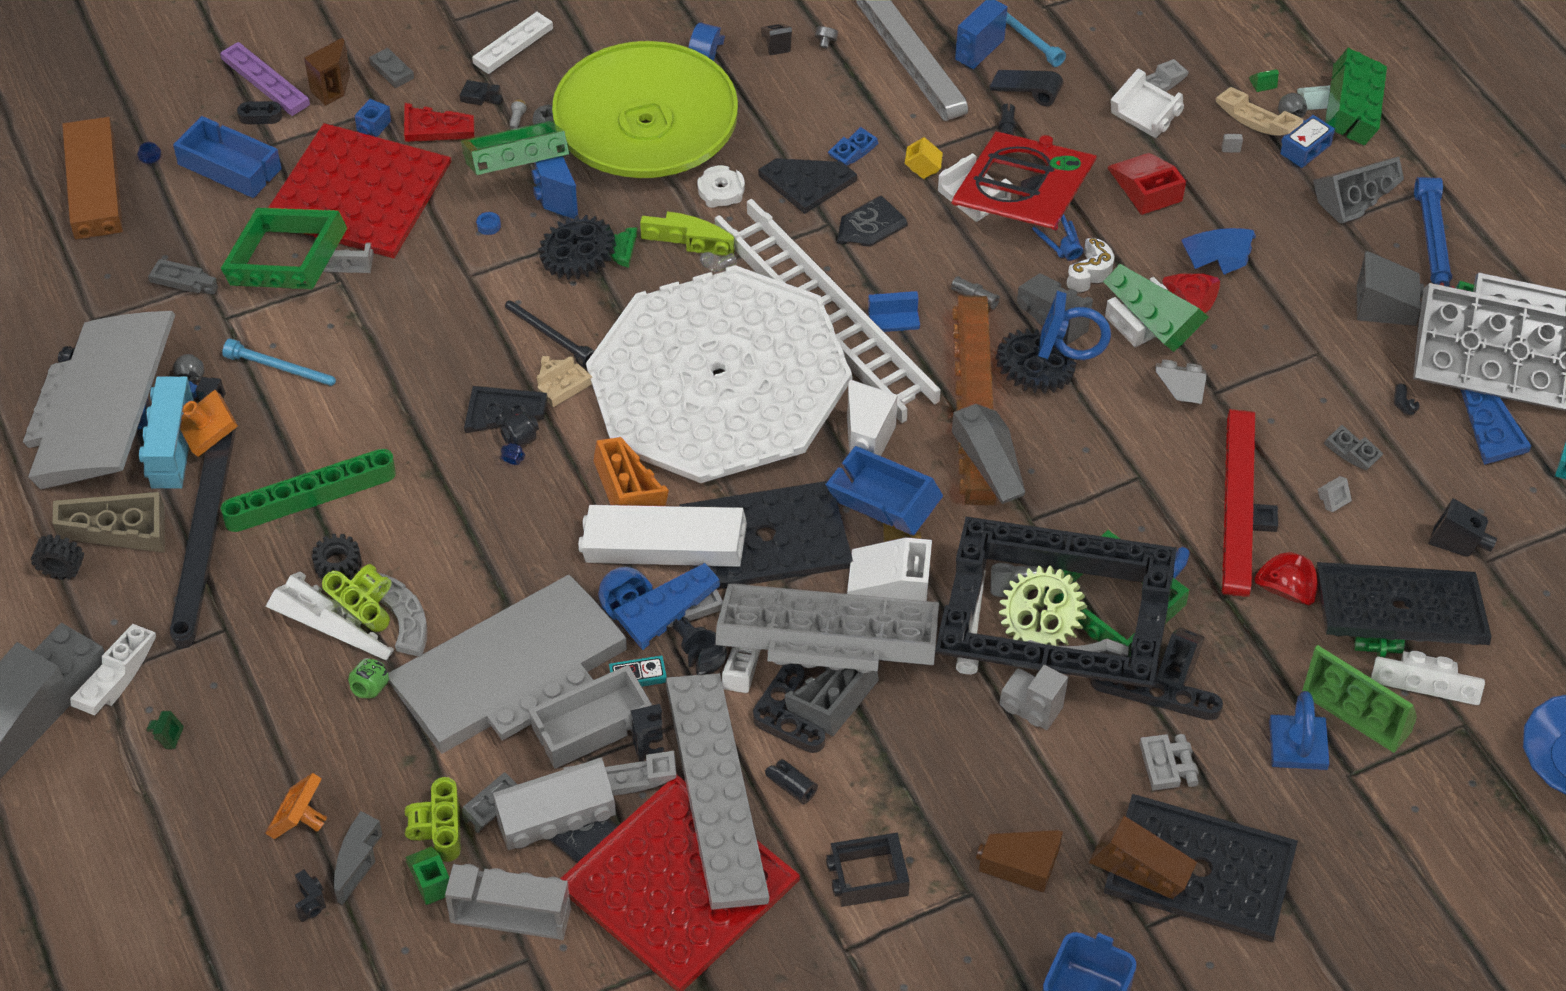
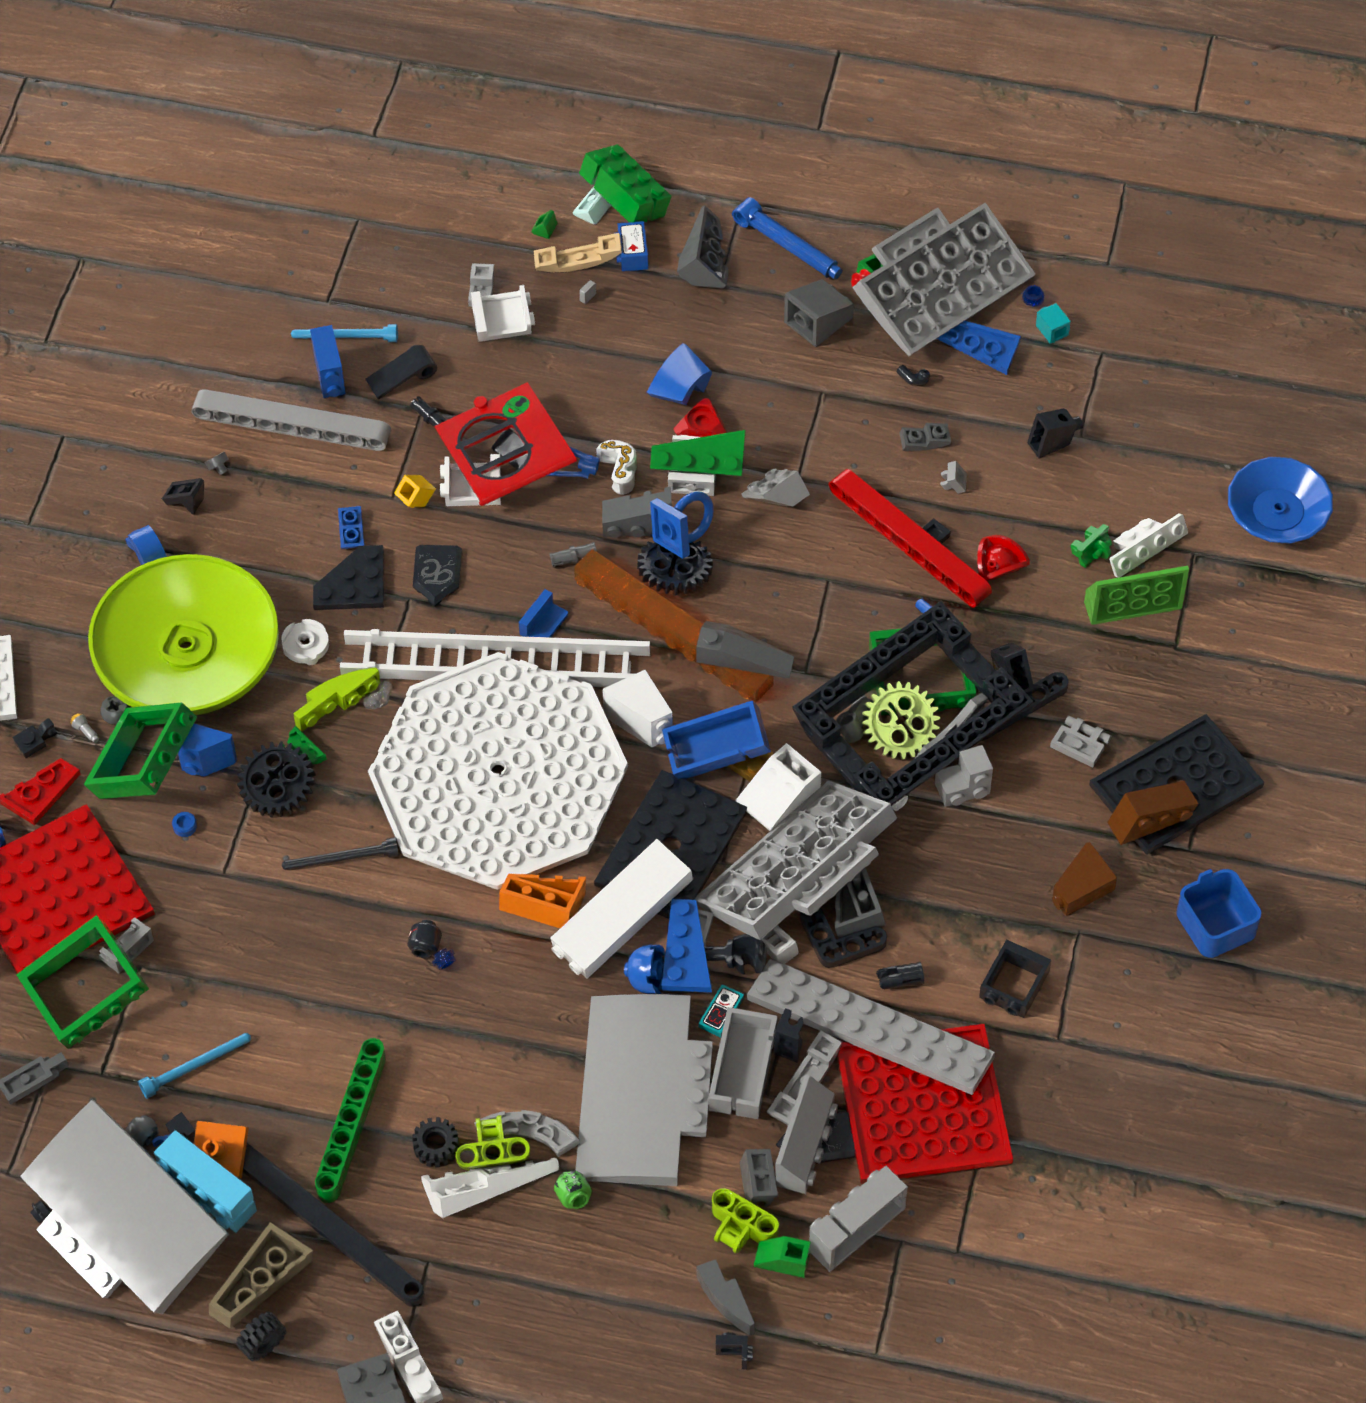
camera: 50 degrees left, 5 degrees up
(166, 729) = (497, 1358): dark green tile -> none
(296, 808) = (652, 1308): orange tile -> none
(492, 405) = (389, 936): black wing -> none
(561, 379) = (397, 879): tan slope -> none
(1149, 182) = (574, 369): red slope -> none
(1294, 104) = (591, 229): dark grey piece -> none
(1299, 739) = (1129, 651): blue tile -> none
(1441, 603) = (1095, 483): black plate -> none

